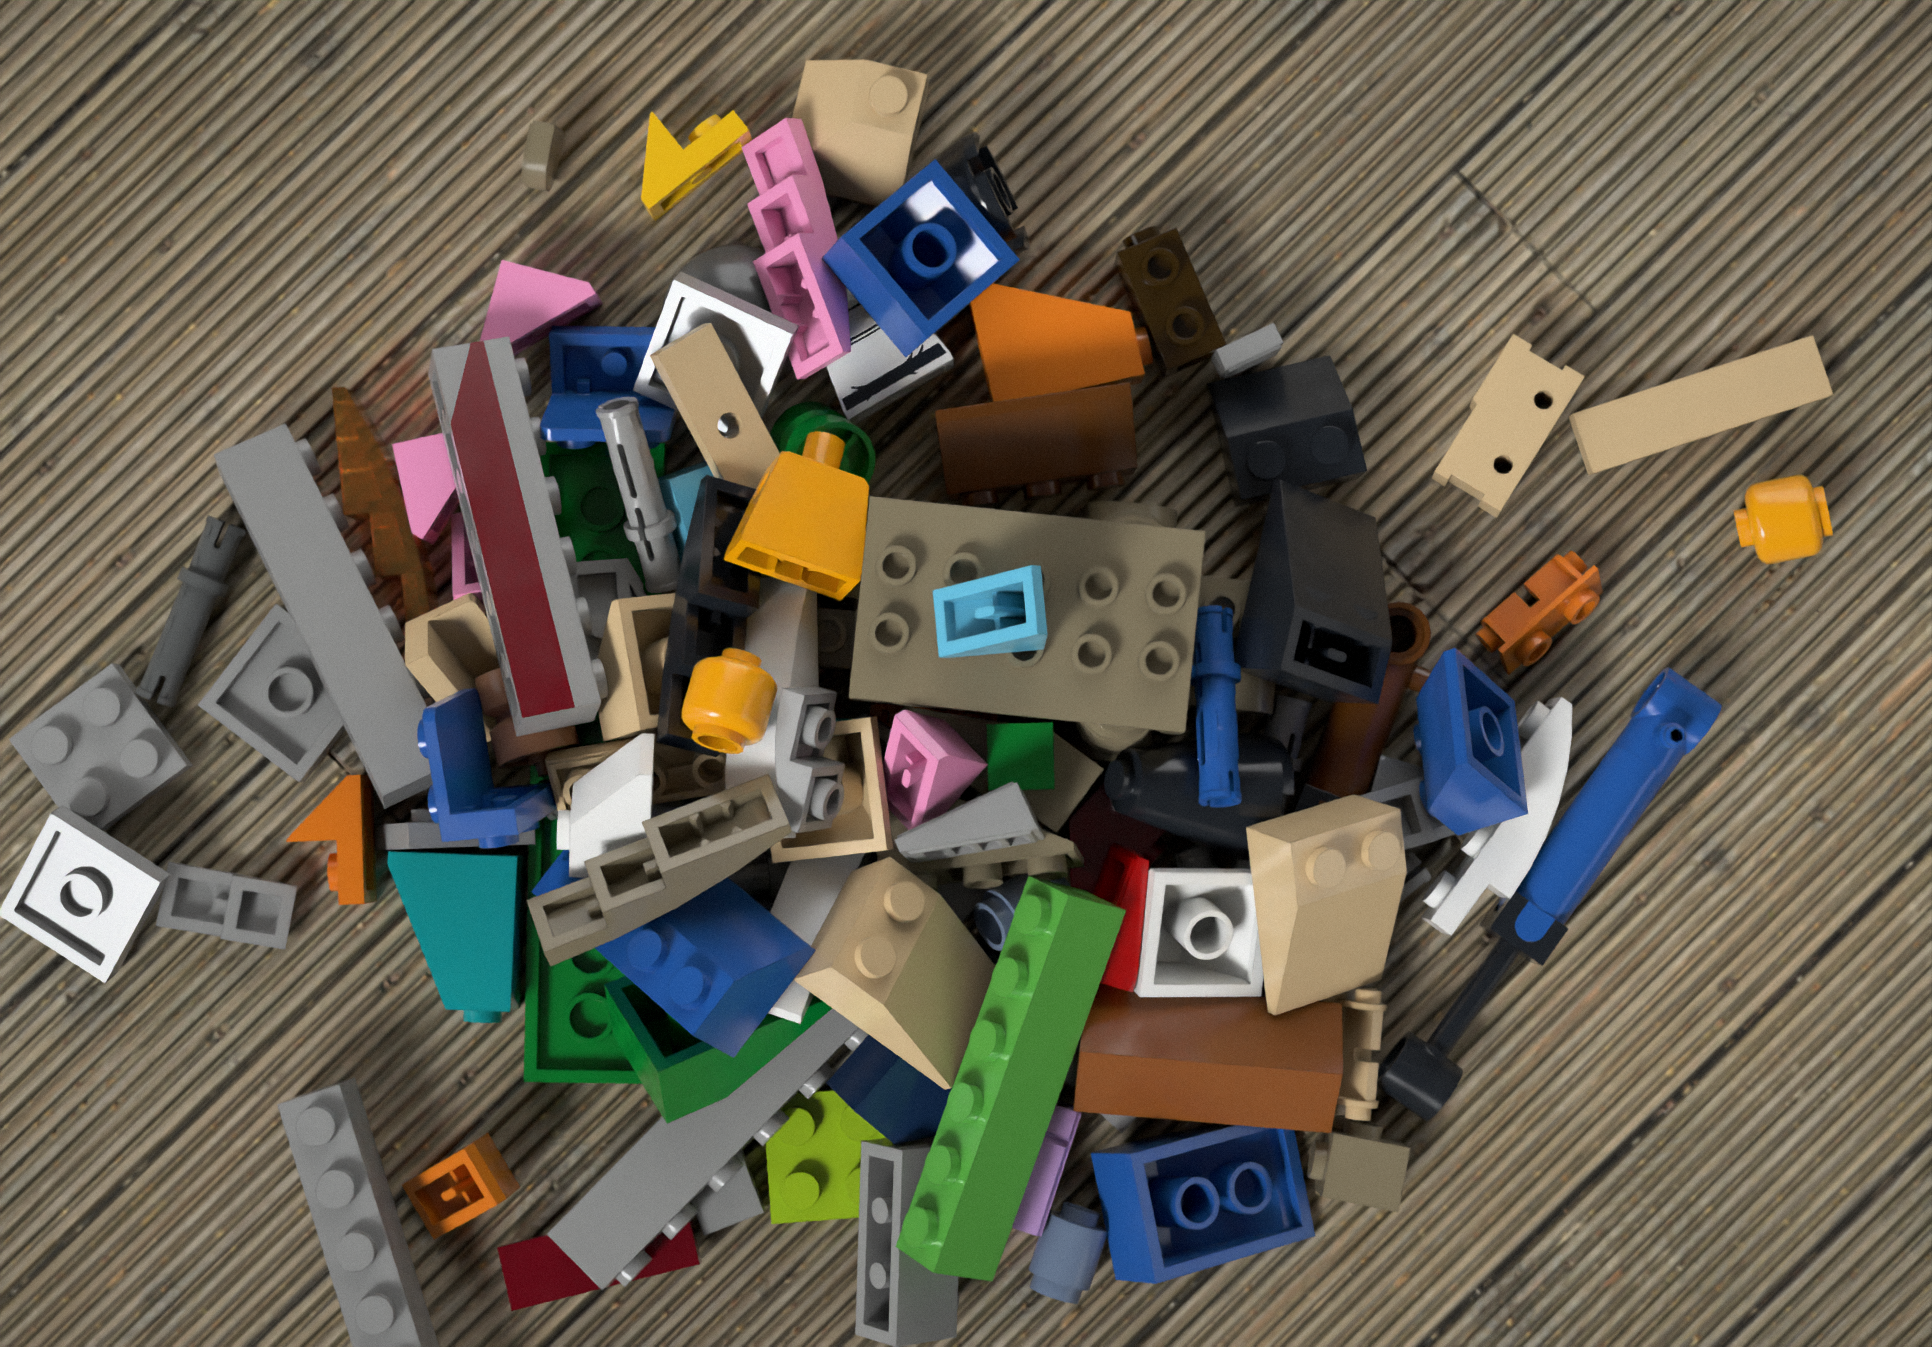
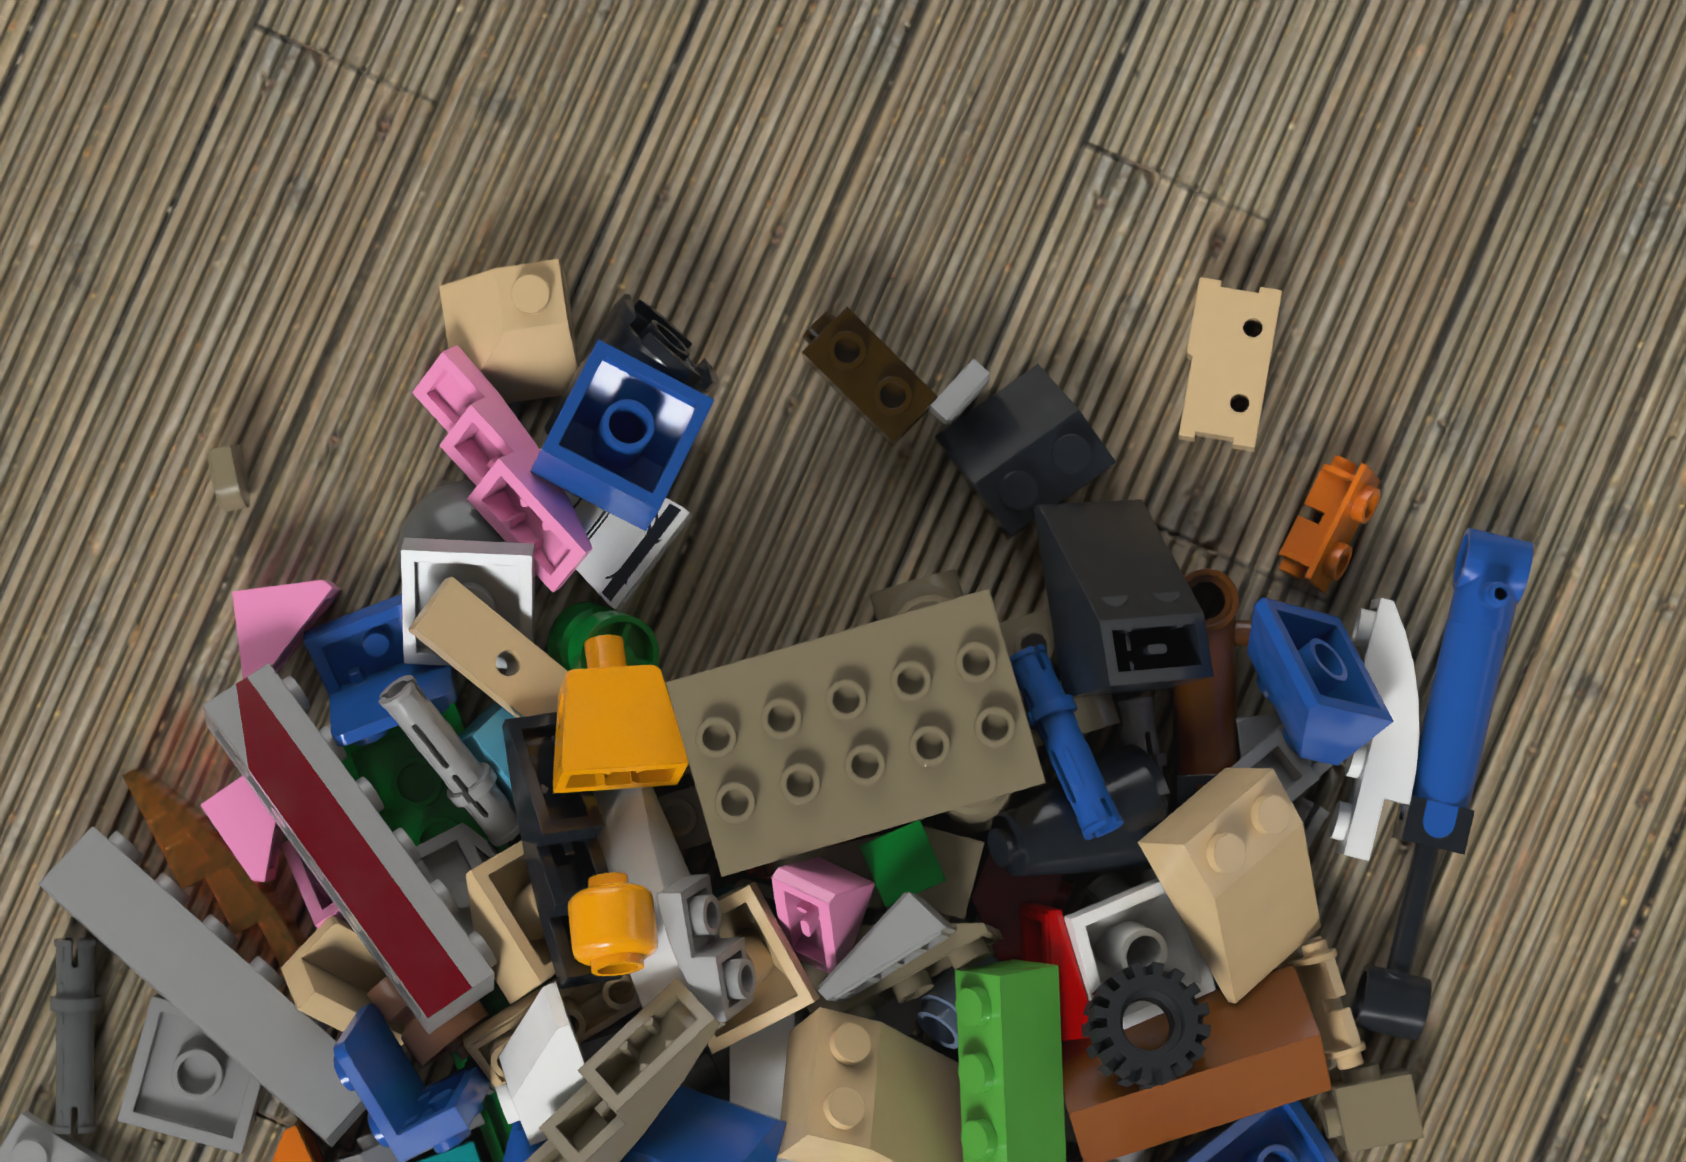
camera: 15 degrees left, 0 degrees up
(677, 172) = (359, 443): yellow slope -> none
(992, 614) = (822, 749): medium azure slope -> none
(1037, 444) = (800, 562): reddish brown slope -> none
(1054, 343) = (779, 462): orange slope -> none
(1222, 991) = (1173, 998): none -> black tyre
(1700, 405) = (1400, 270): tan tile -> none
(1784, 519) = (1520, 346): light orange head -> none

